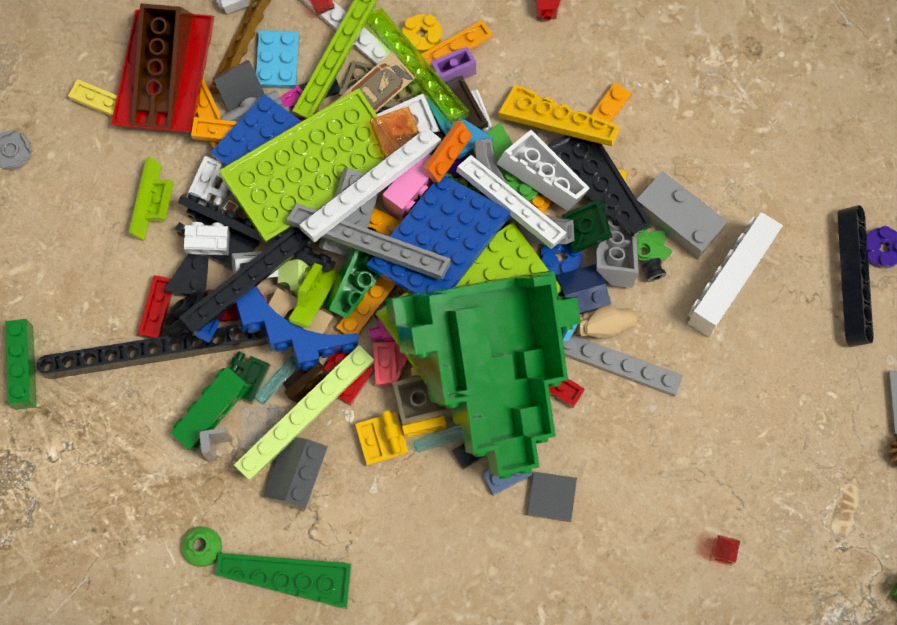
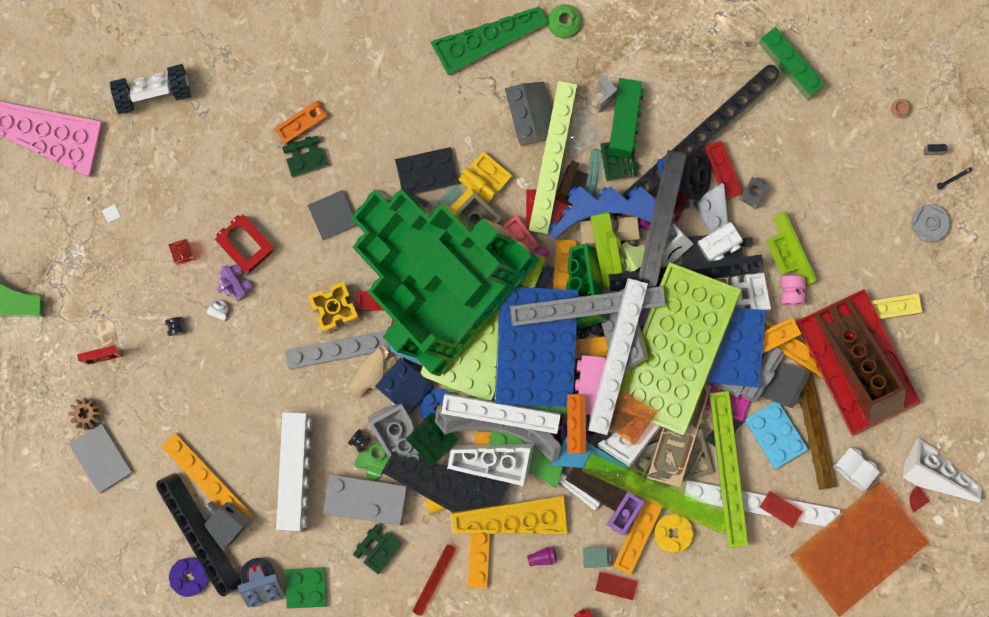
camera: 150 degrees right, 10 degrees up
(142, 261) = (750, 199): none -> dark grey brick
(172, 164) = (793, 290): none -> bright pink wheel
(433, 481) = (427, 171): none -> black plate
(500, 22) = (616, 586): none -> clear red tile
(503, 50) = (596, 557): none -> sand green brick
(528, 608) = (301, 122): none -> orange plate
(546, 566) = (305, 162): none -> dark green plate
(548, 77) = (545, 556): none -> magenta cone
(617, 396) = (338, 296): none -> yellow brick
(647, 541) = (265, 251): none -> red panel
(657, 116) = (434, 580): none -> clear red axle
(689, 499) = (230, 284): none -> medium lavender hips
(693, 163) = (382, 551): none -> dark green plate
(718, 473) = (218, 309): none -> white plate
(771, 481) = (175, 326): none -> black wheel
(779, 176) = (305, 588): none -> green plate
(819, 321) = (201, 474): none -> light orange plate
(820, 205) = (259, 583): none -> sand blue plate
(824, 268) = (225, 523): none -> dark grey torso
(864, 495) = (100, 355): none -> red tile

